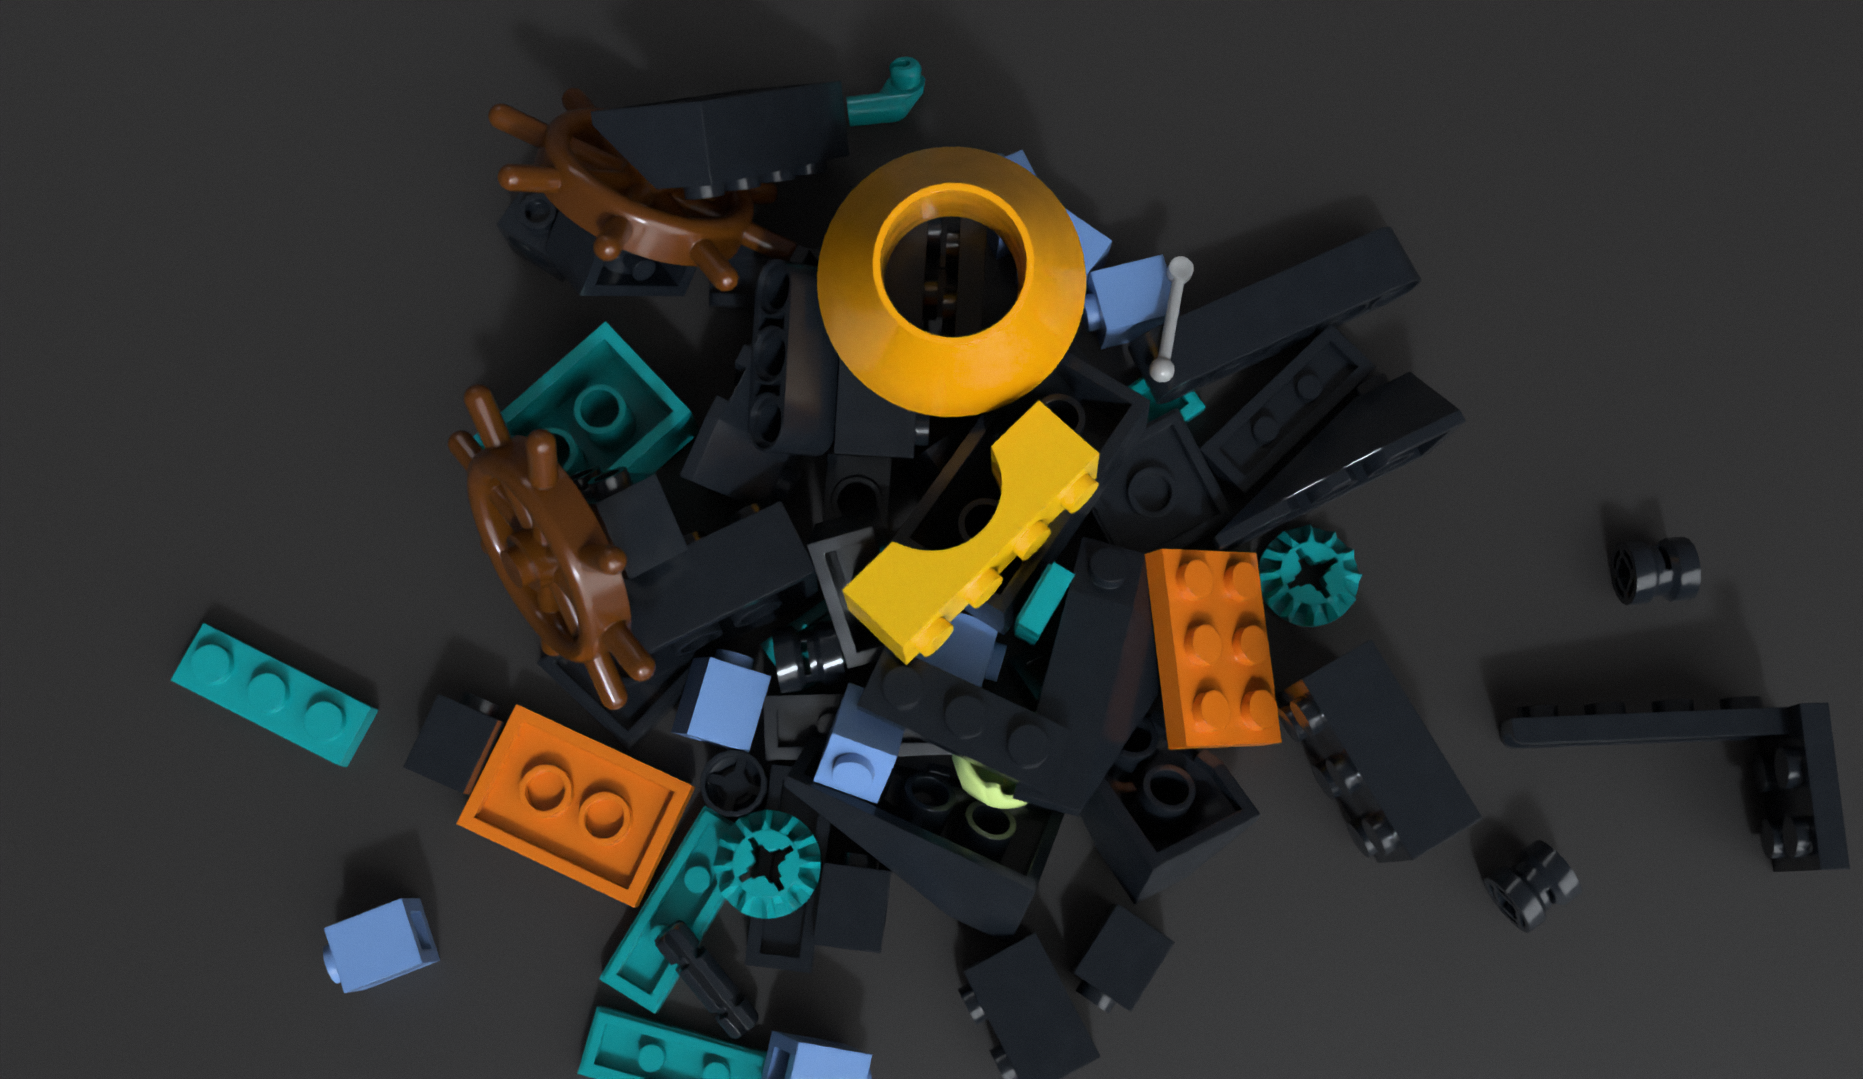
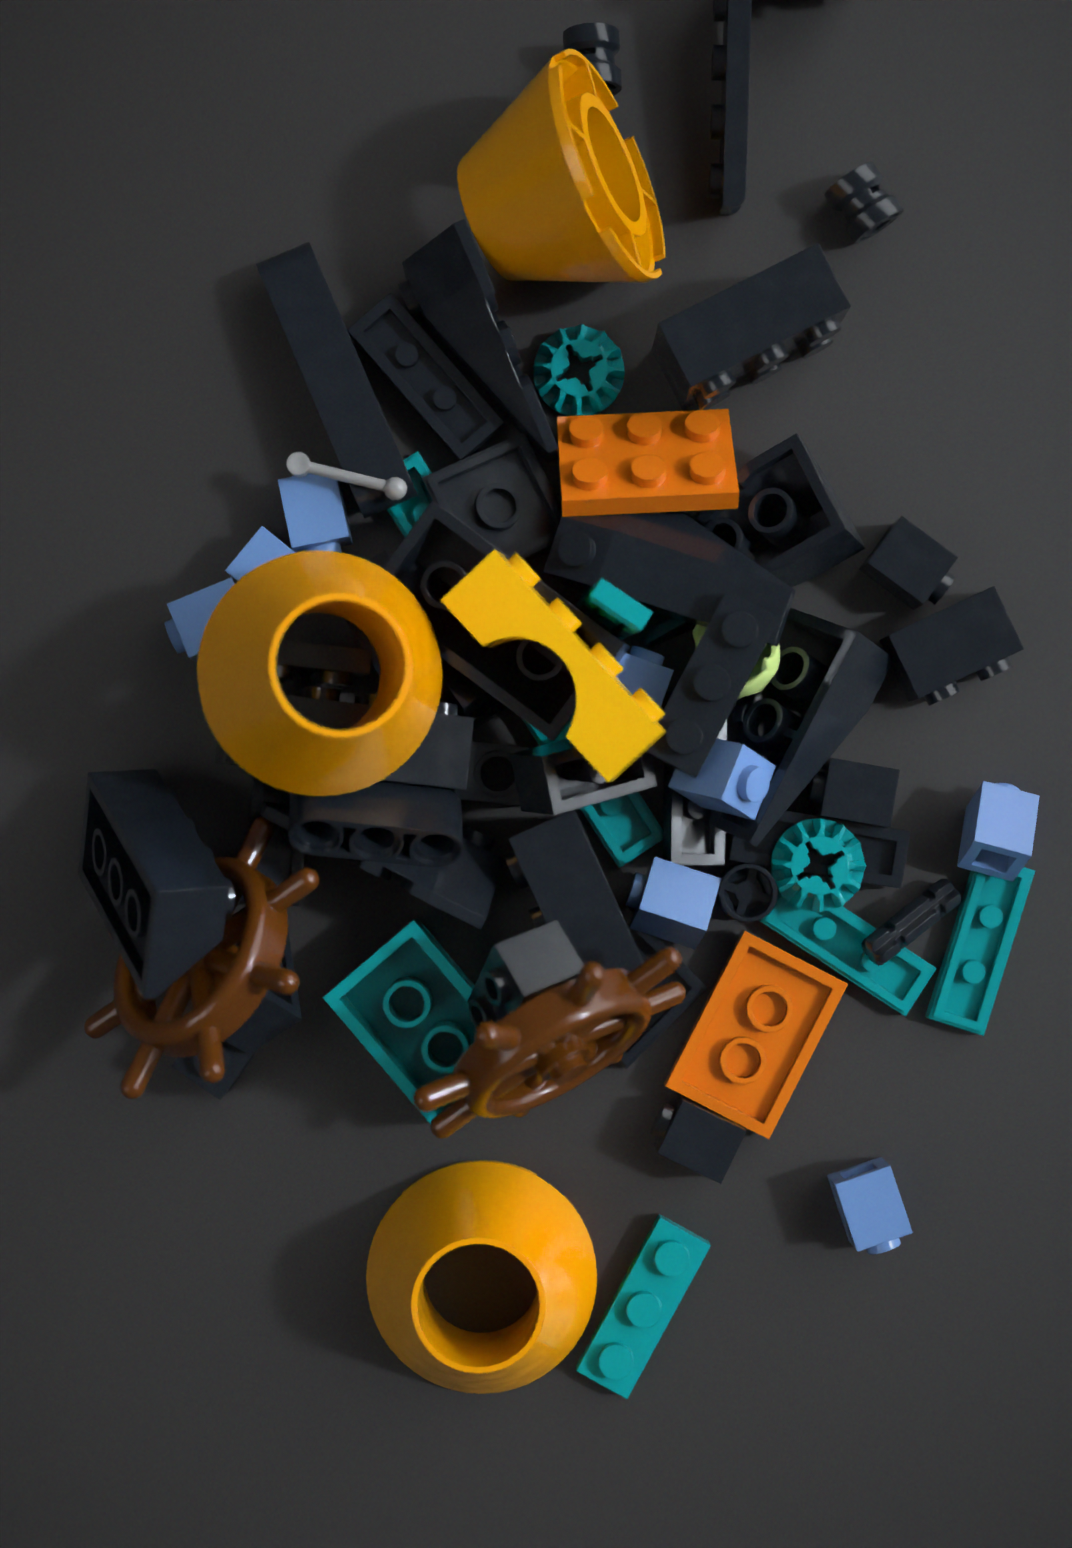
camera: 90 degrees left, 10 degrees up
(358, 553) = (494, 1207): none -> light orange cone
(824, 656) = (638, 808): black wheel -> none
(894, 98) = (97, 724): teal arm -> none
(1518, 535) = (559, 186): none -> light orange cone

